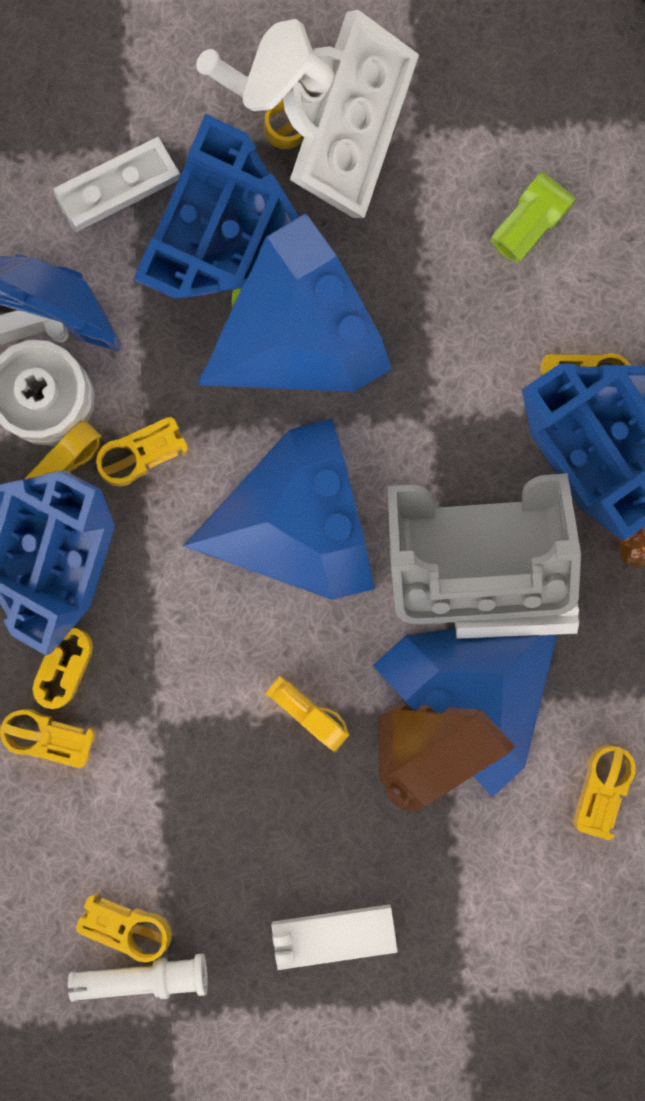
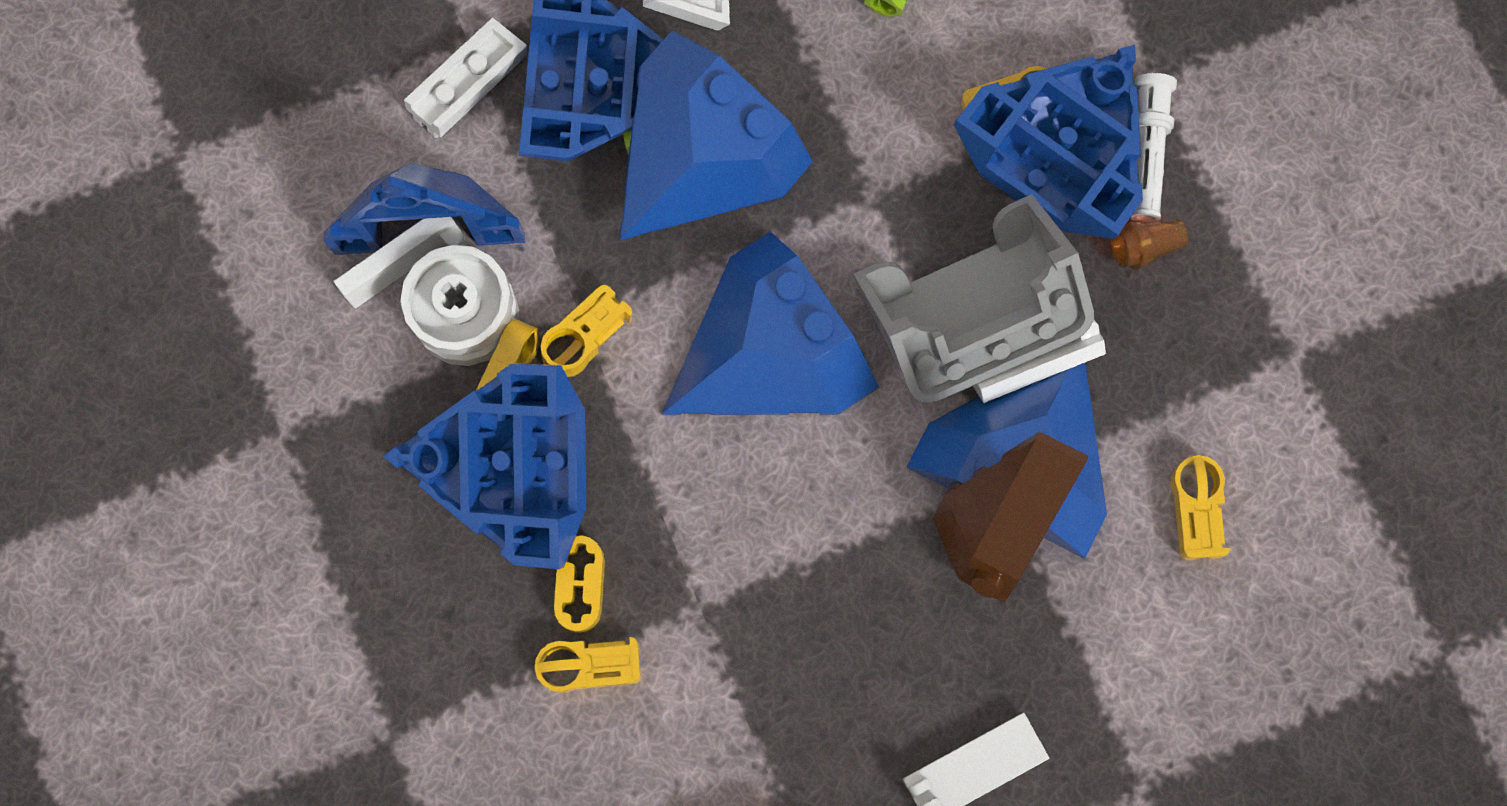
camera: 15 degrees left, 10 degrees down
(308, 713) = (858, 537): yellow piece -> none

